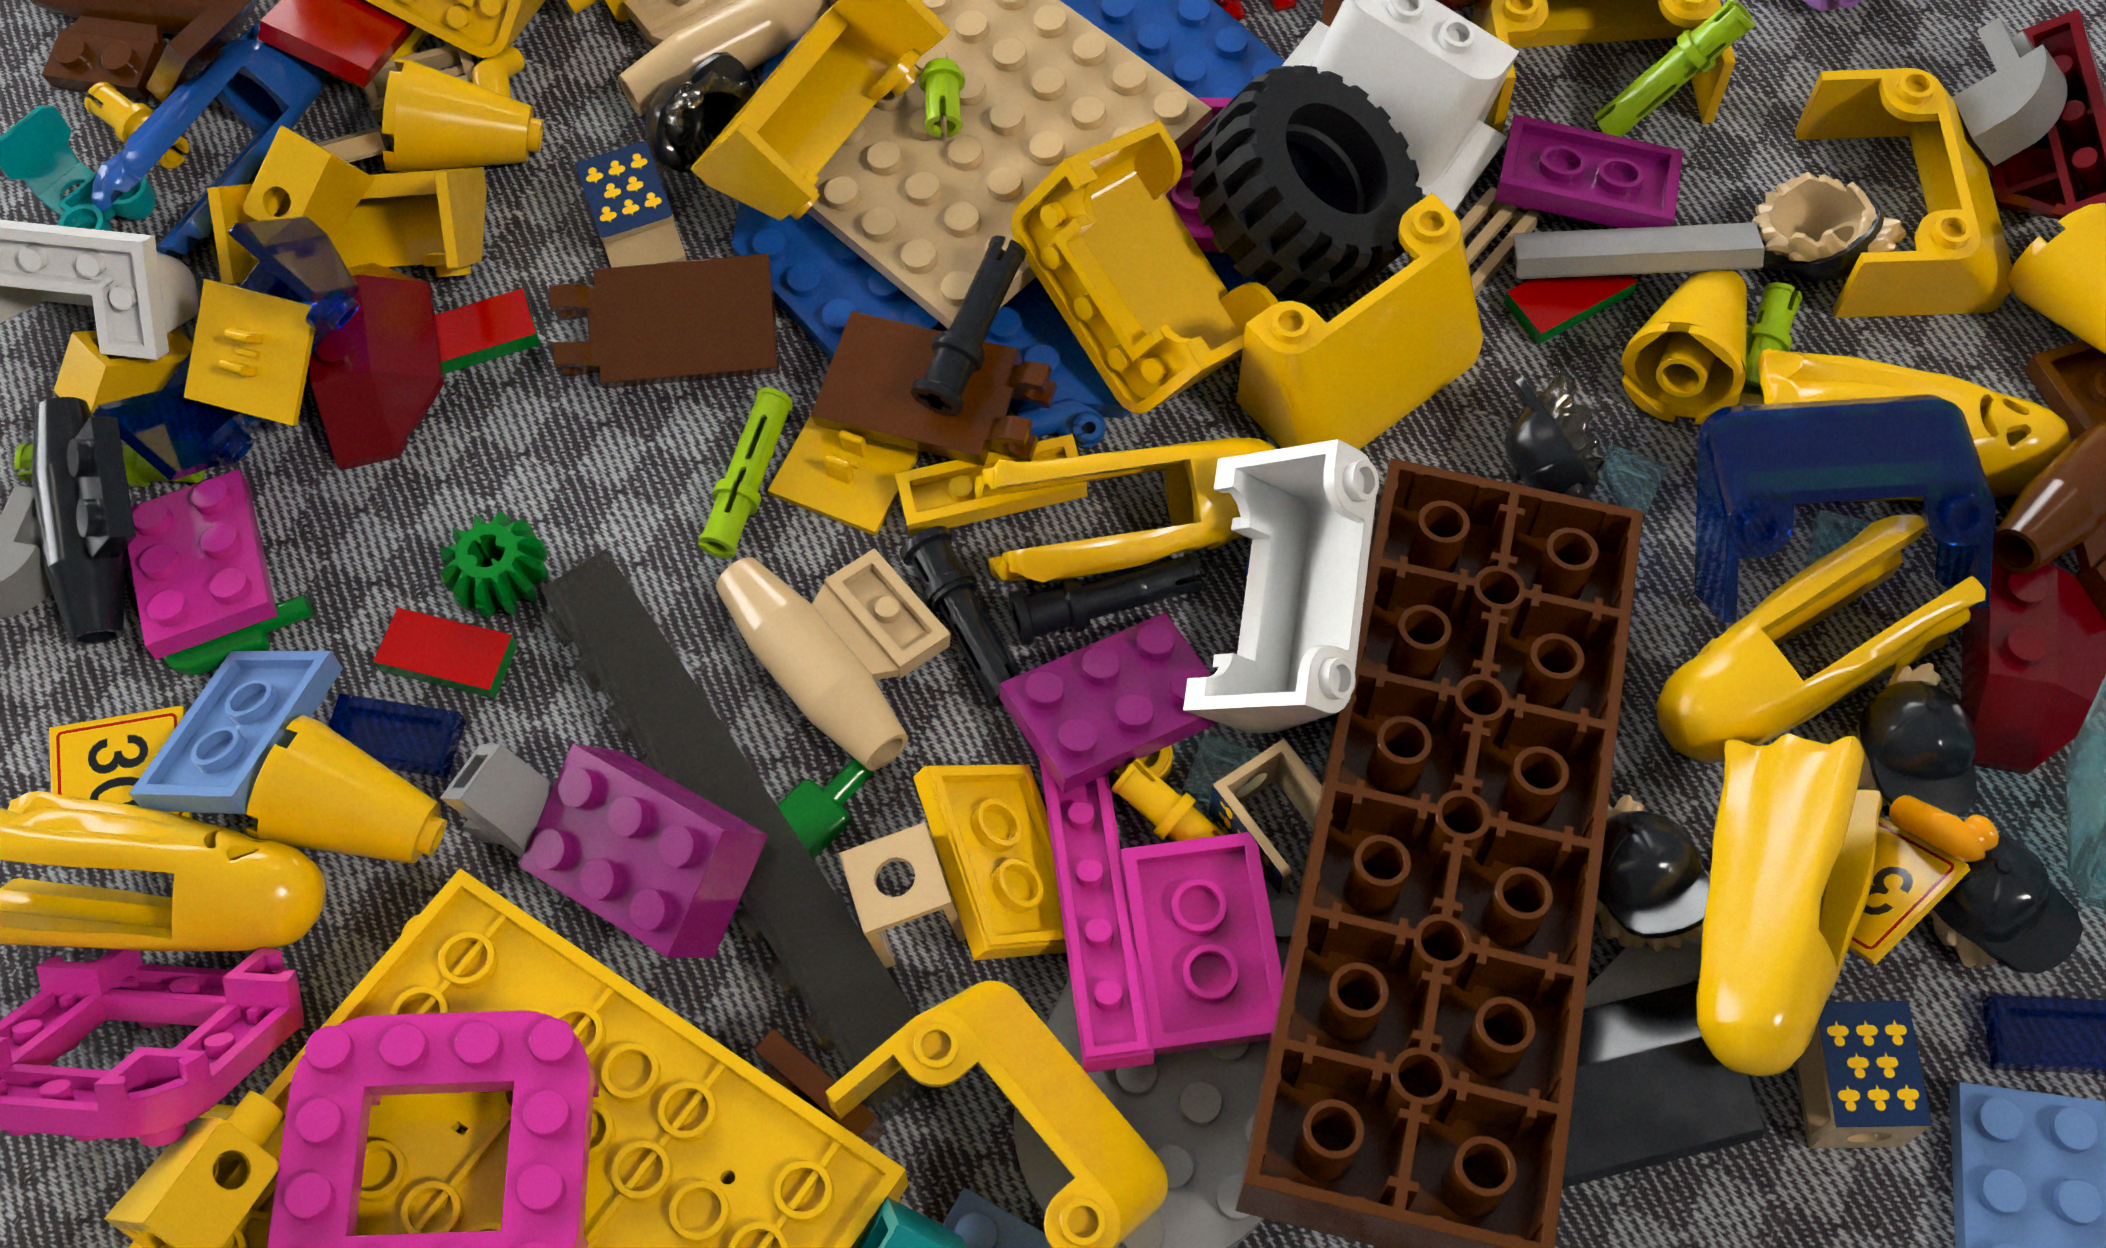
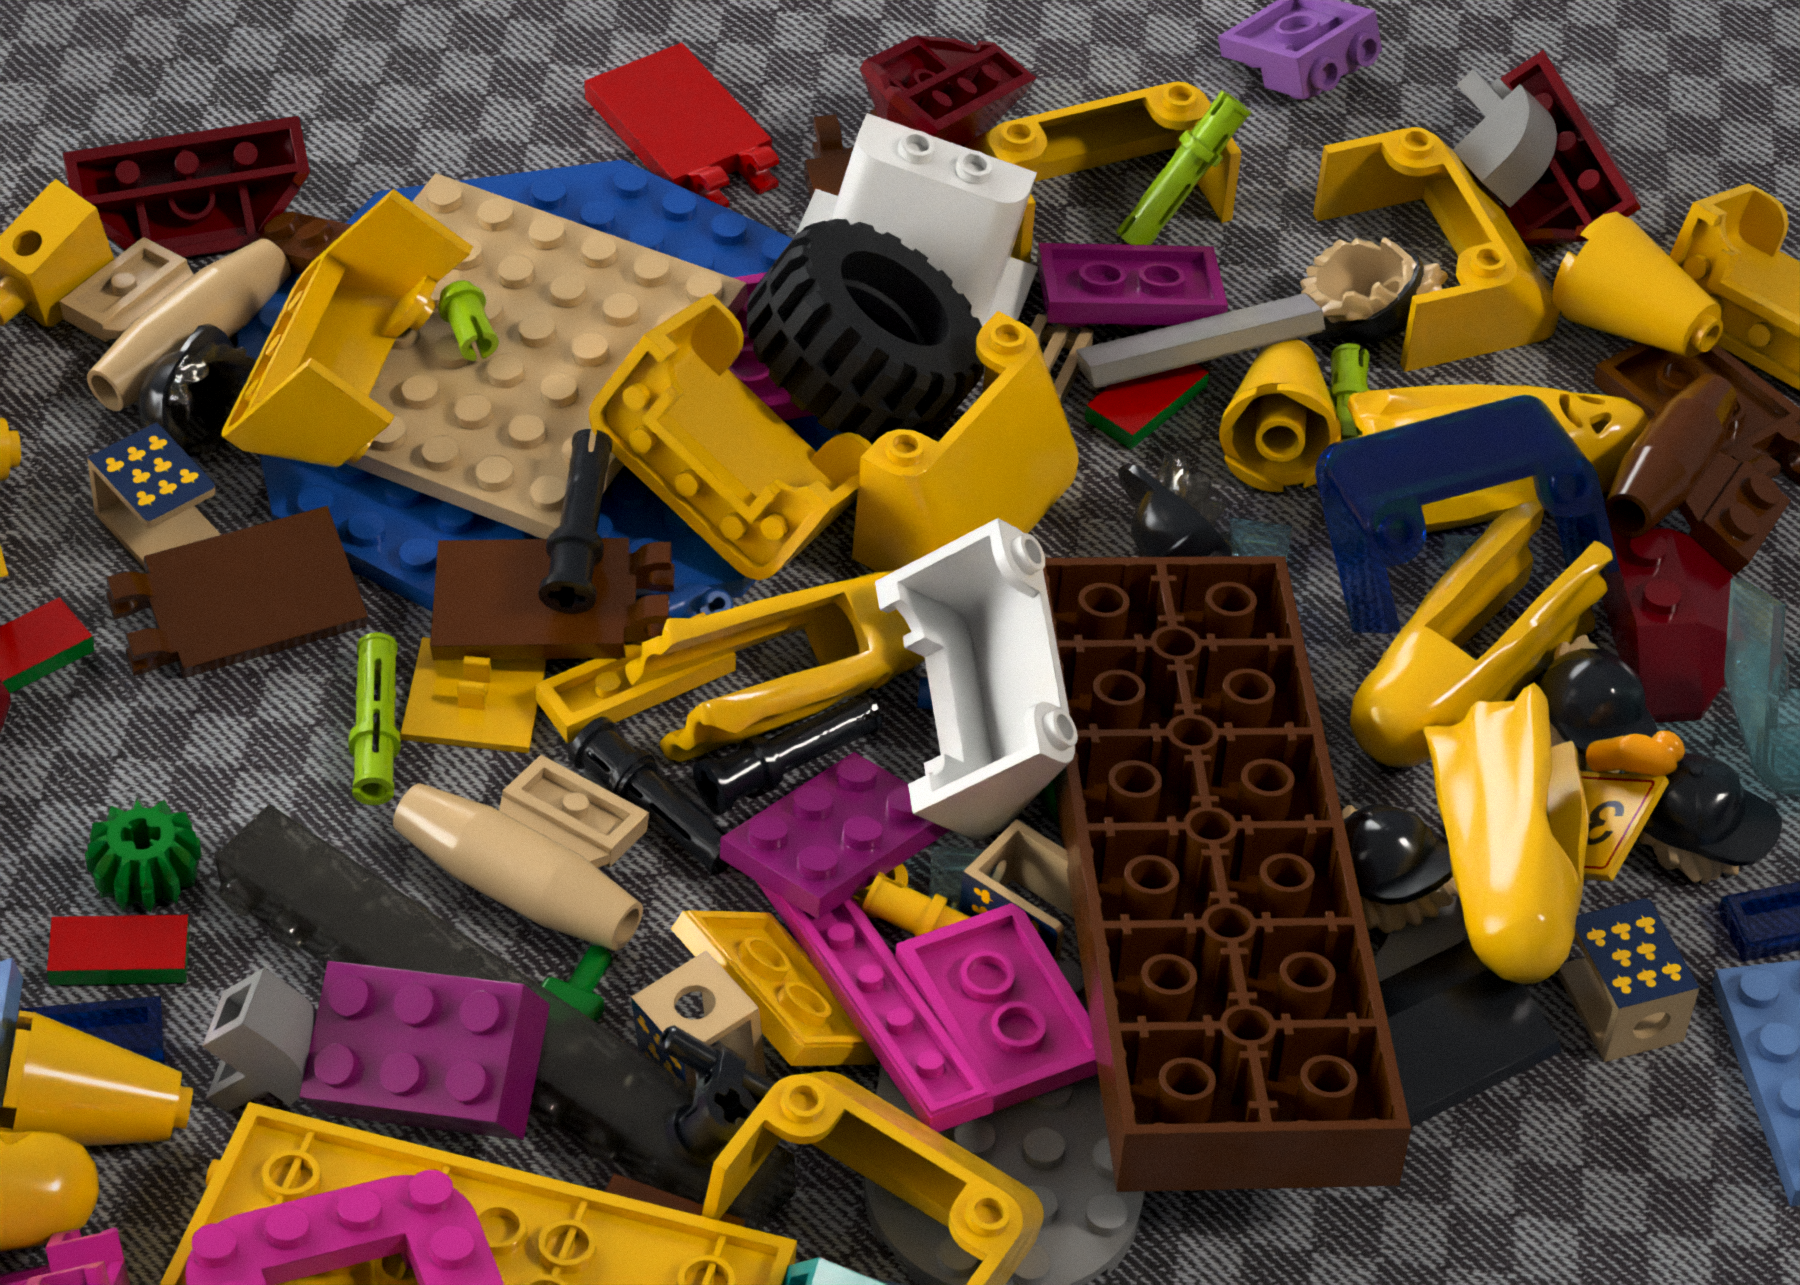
camera: 25 degrees left, 15 degrees down
(881, 989) = (722, 1098): none -> black piece

